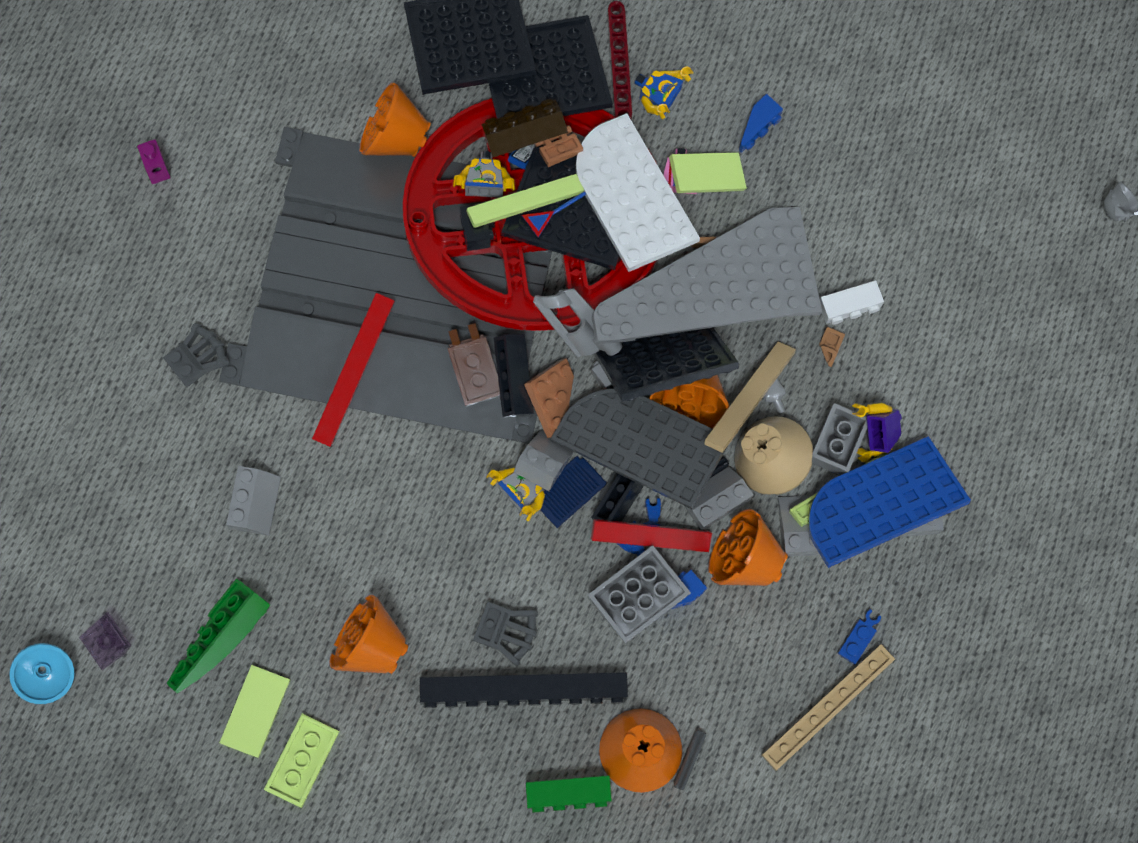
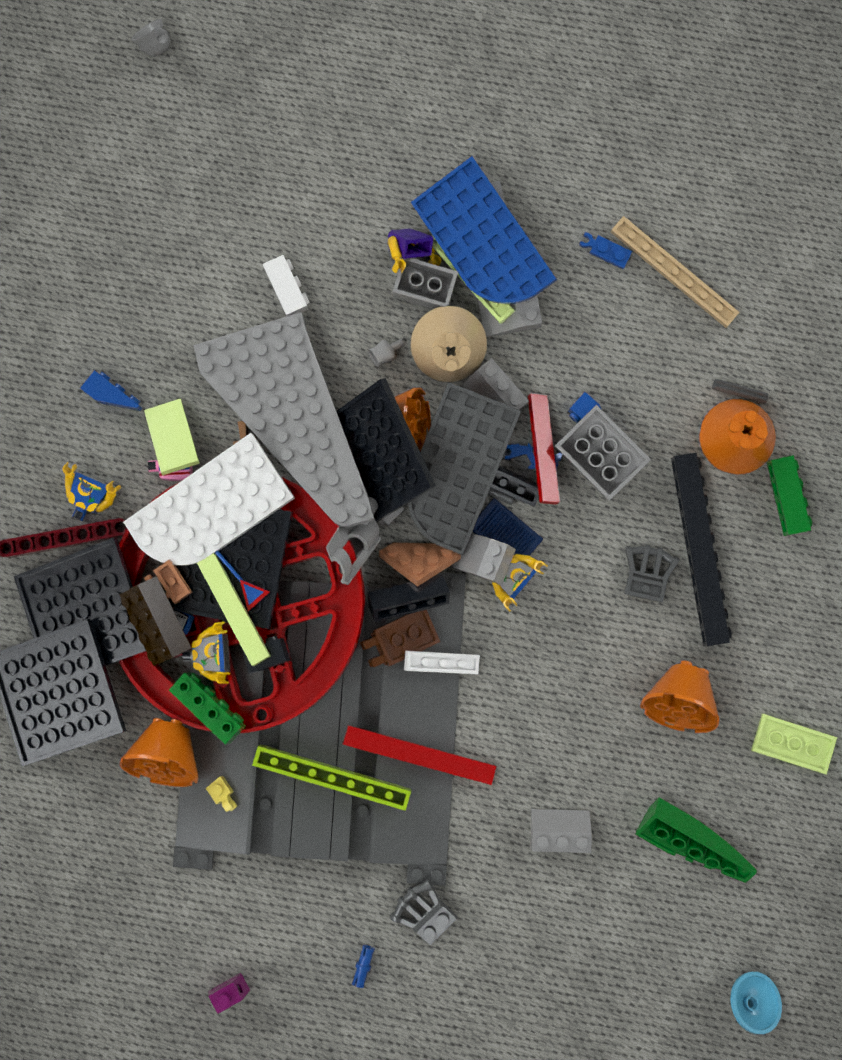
camera: 95 degrees left, 10 degrees up
(105, 641) = (714, 948): clear purple slope -> none
(154, 291) = (363, 966): none -> blue pin
(255, 711) = (756, 795): yellowish green tile -> none
(345, 278) = (332, 777): none -> lime brick
(346, 176) = (220, 792): none -> light yellow plate
(432, 169) = (207, 707): none -> green brick
(443, 404) = (441, 662): none -> white tile
(746, 553) = (549, 359): orange cone -> none
(749, 397) = (400, 369): tan tile -> none
(830, 344) = (328, 302): medium nougat slope -> none

